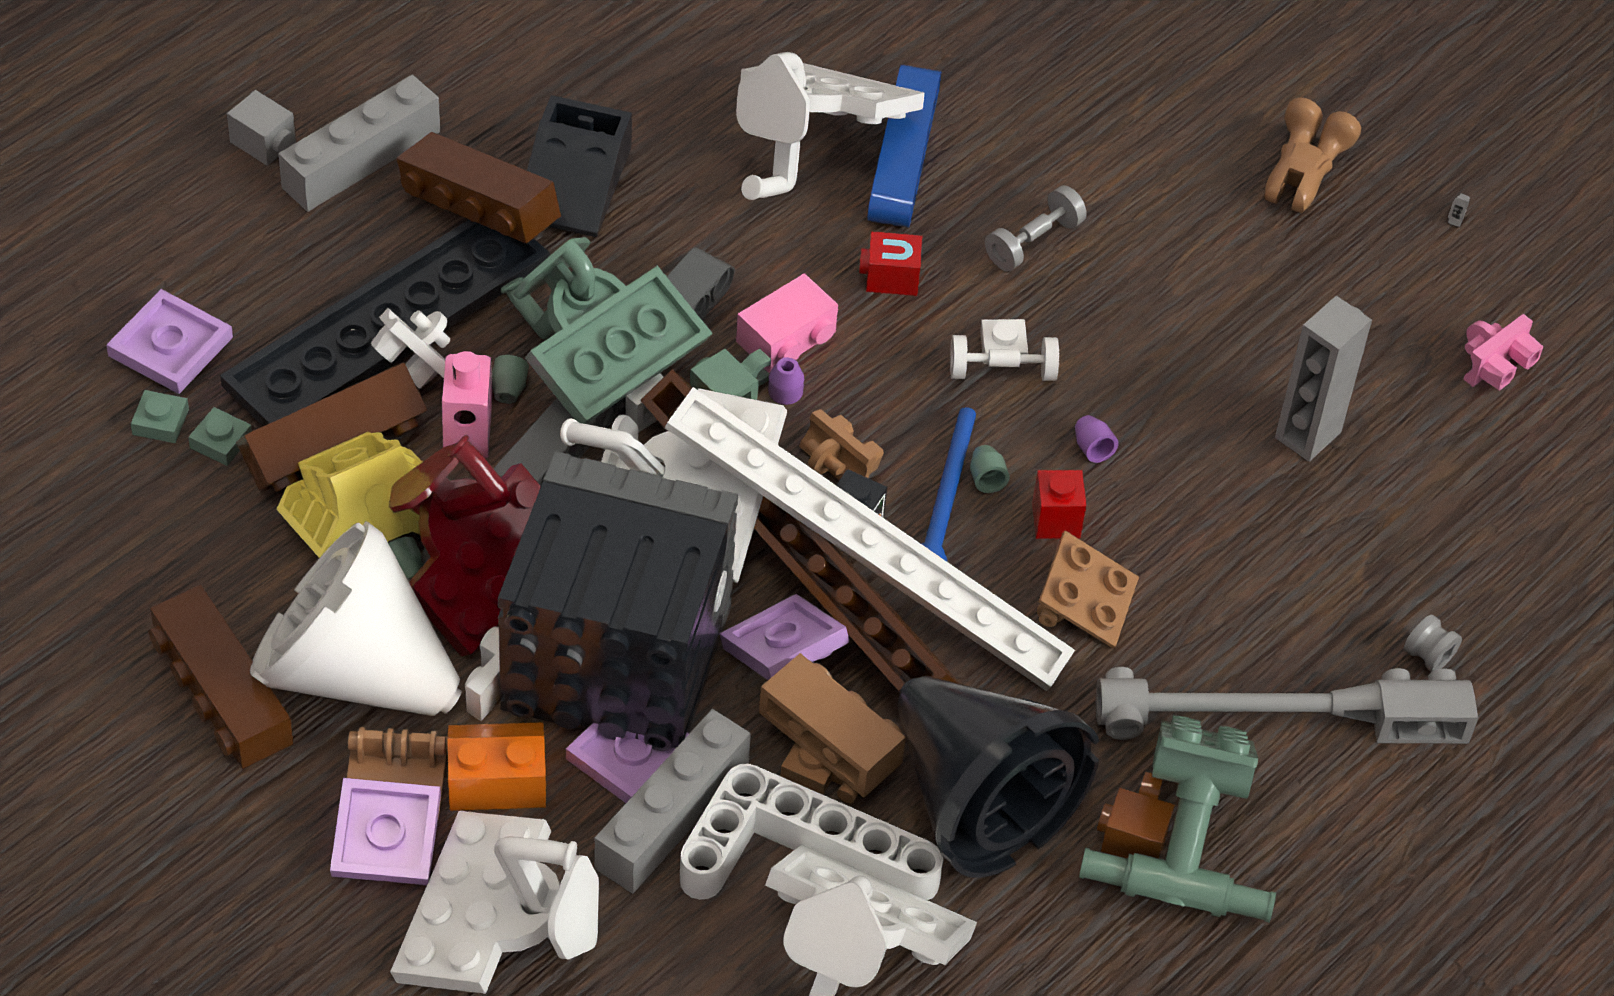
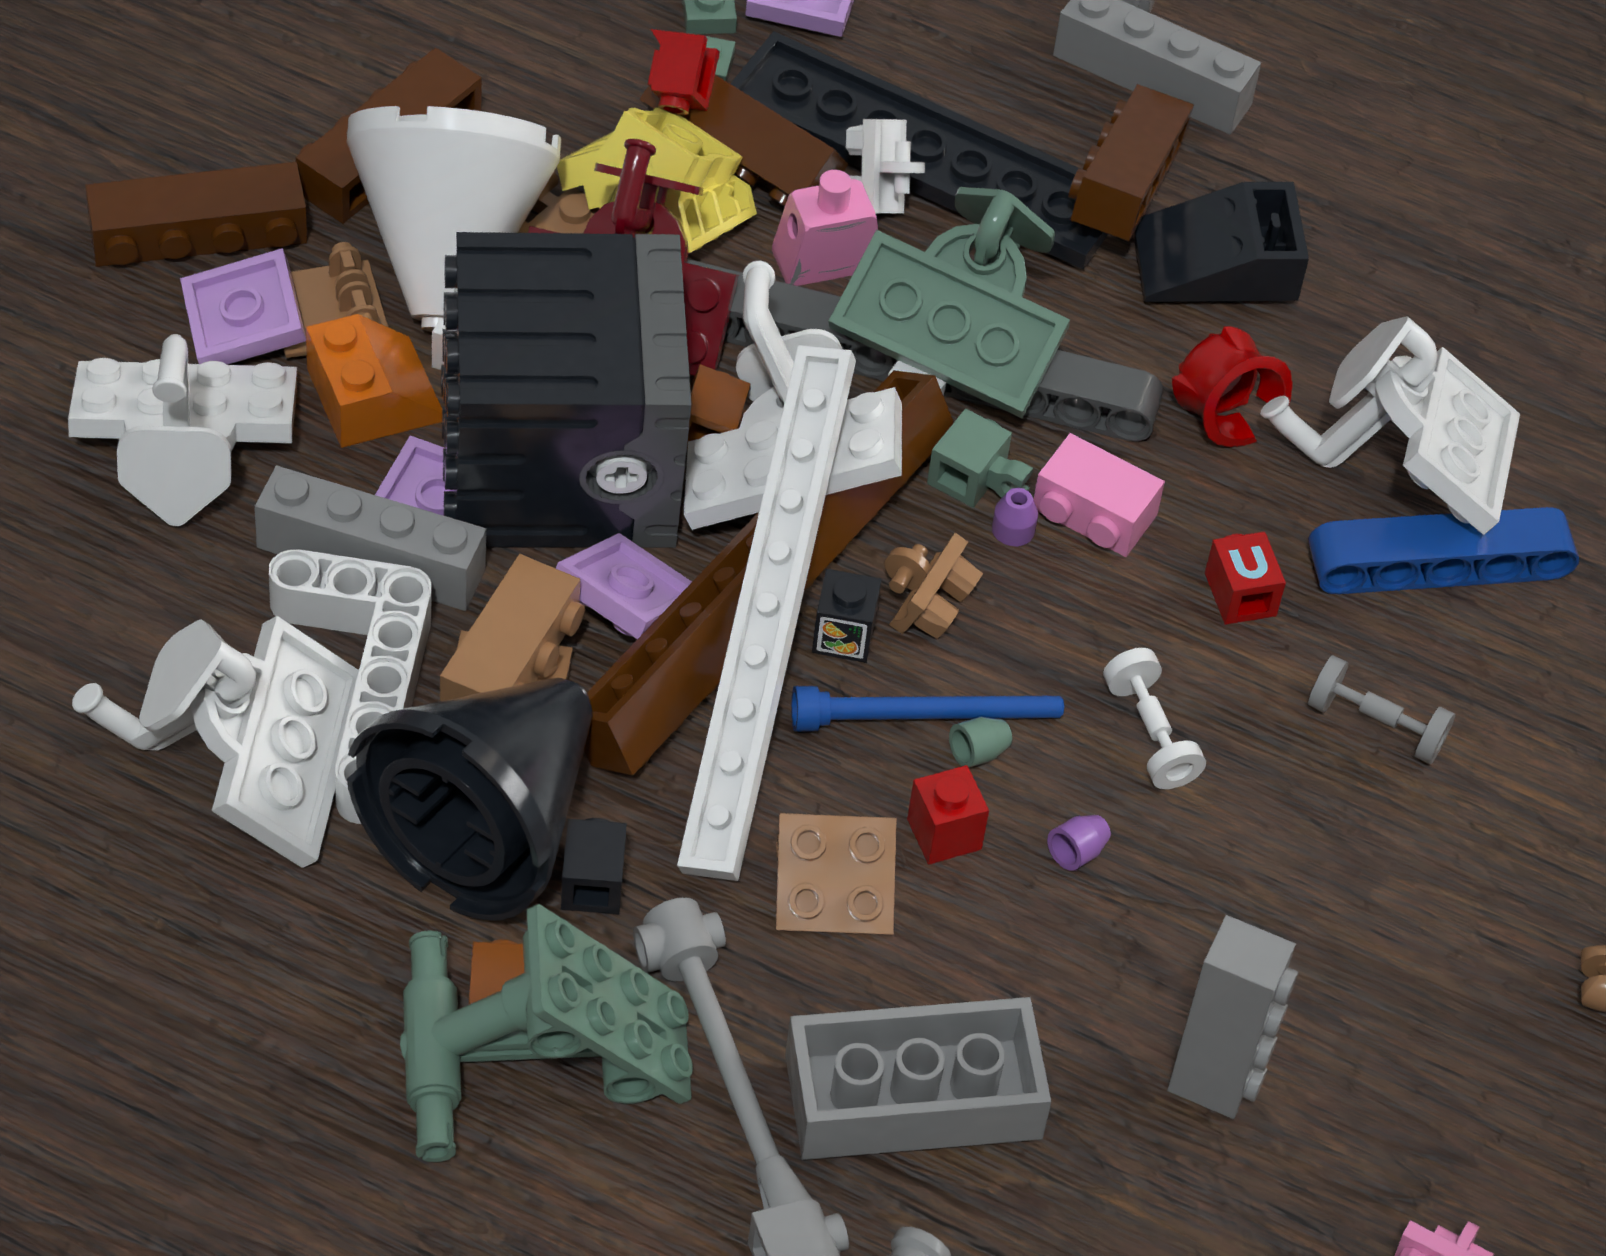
camera: 70 degrees right, 0 degrees up
(257, 842) = (196, 214): none -> reddish brown brick
(284, 433) = (682, 71): none -> red window
(712, 208) = (1221, 376): none -> red helmet
(1004, 335) = (1195, 718): white plate -> none
(1289, 591) = (917, 1078): none -> light grey brick

